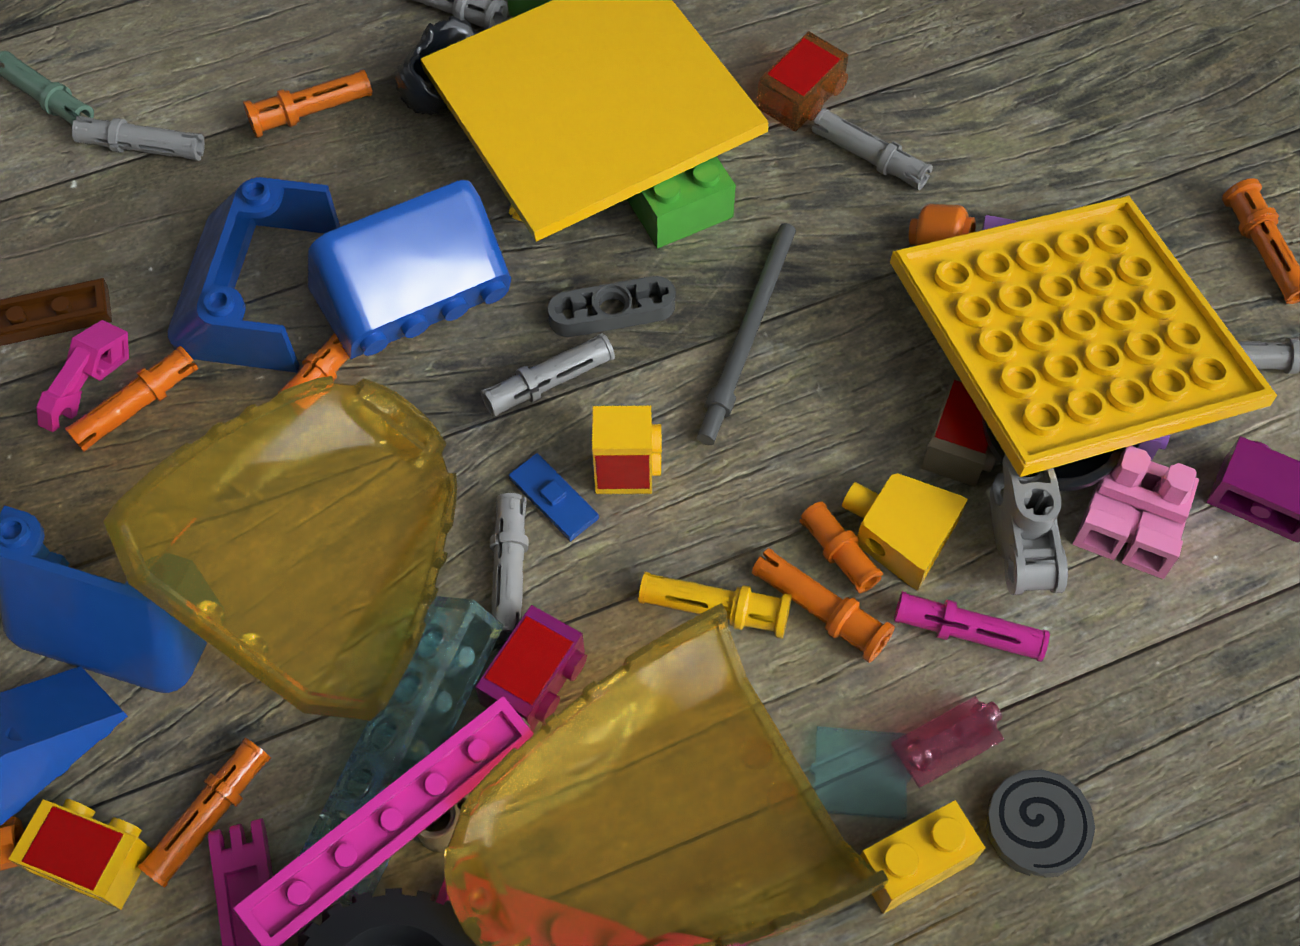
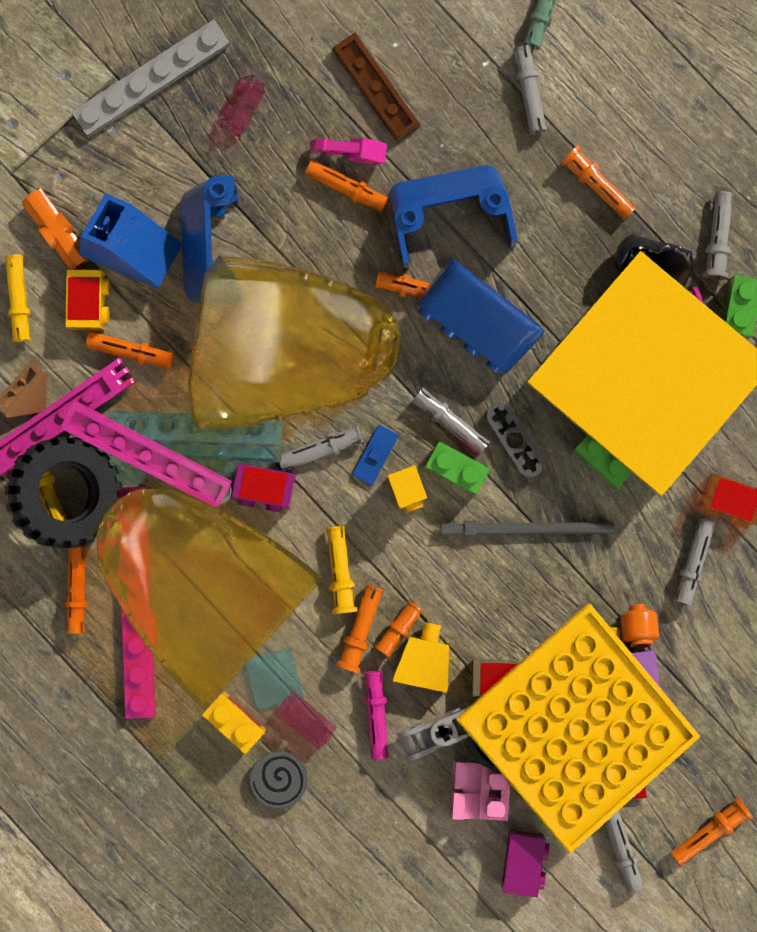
camera: 70 degrees right, 25 degrees up
(625, 376) = (457, 468): none -> bright green brick

